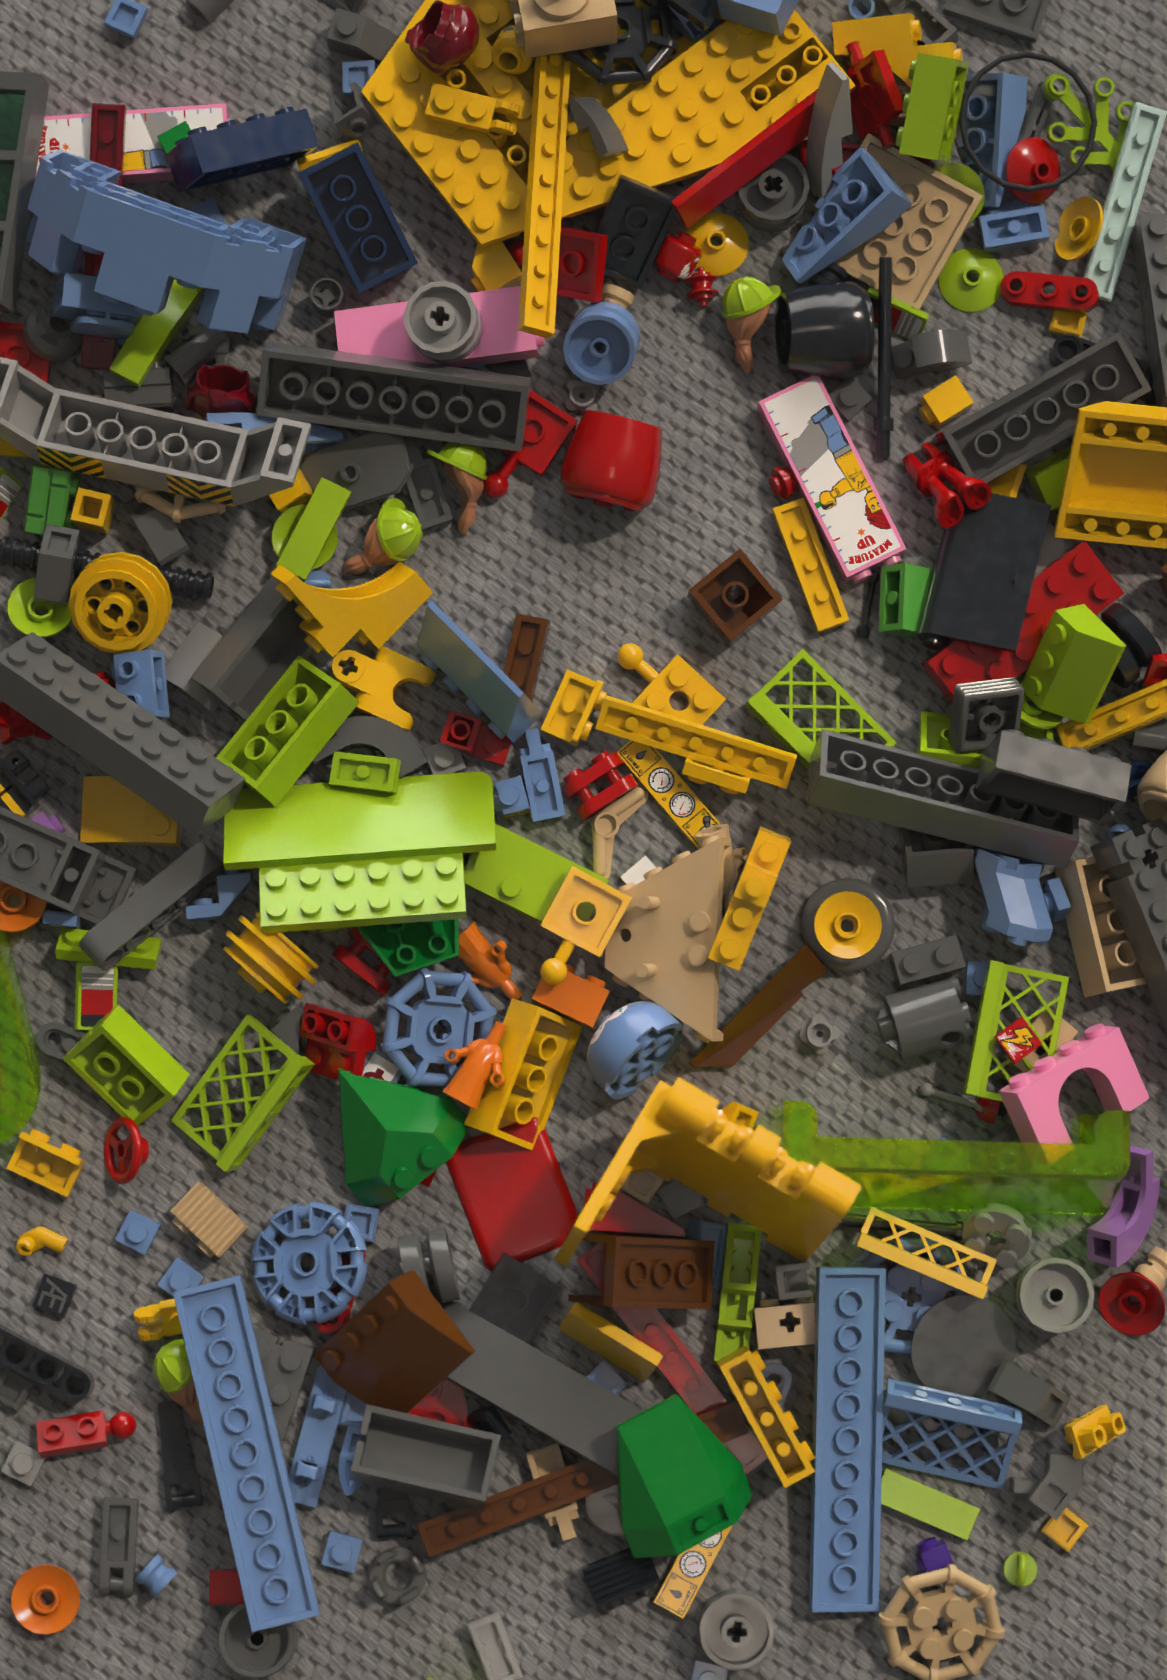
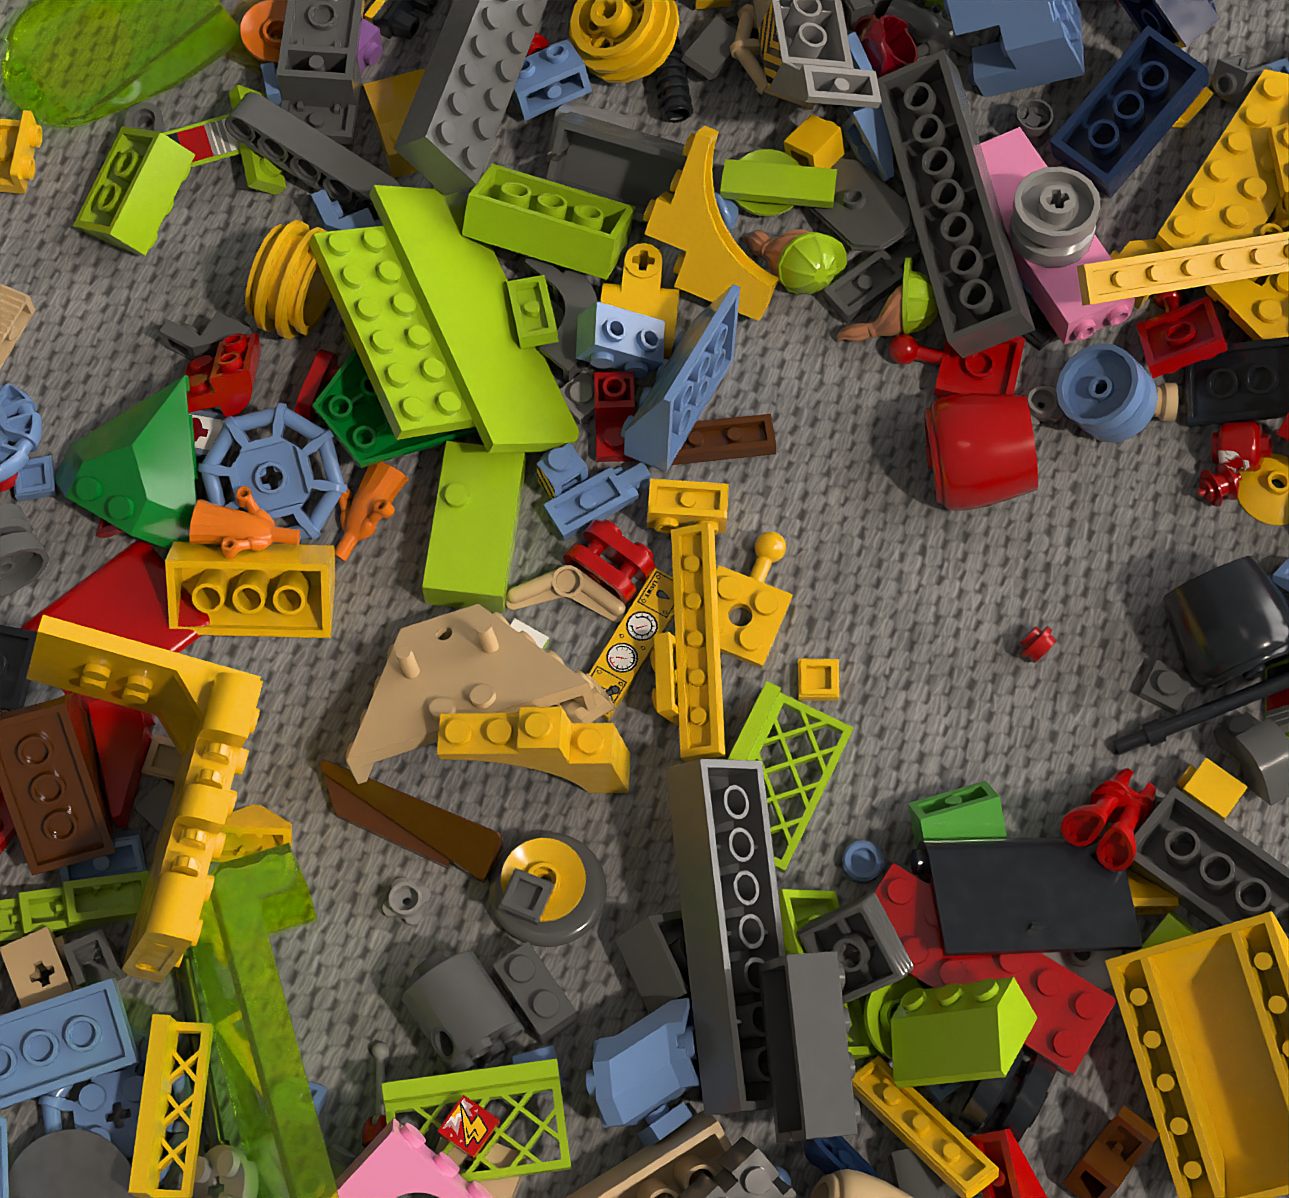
camera: 70 degrees right, 15 degrees down
(131, 1151) = (44, 222): red piece -> none
(264, 1111) = (125, 331): lime fence -> none
(420, 711) = (620, 339): none -> medium blue brick
(574, 997) = (359, 608): orange brick -> none
(590, 935) = (433, 558): yellow plate -> none
(623, 1043) = (315, 677): medium blue cylinder -> none
(734, 597) = (880, 628): reddish brown slope -> none
(745, 308) = (1215, 531): piece -> none
(750, 660) = (818, 679): none -> yellow tile
(810, 565) = (954, 706): yellow plate -> none
(832, 479) = (1063, 694): brick -> none
(859, 941) = (526, 896): none -> dark grey tile
(863, 630) = (904, 793): black hinge -> none
(906, 682) = (862, 862): none -> medium blue tile

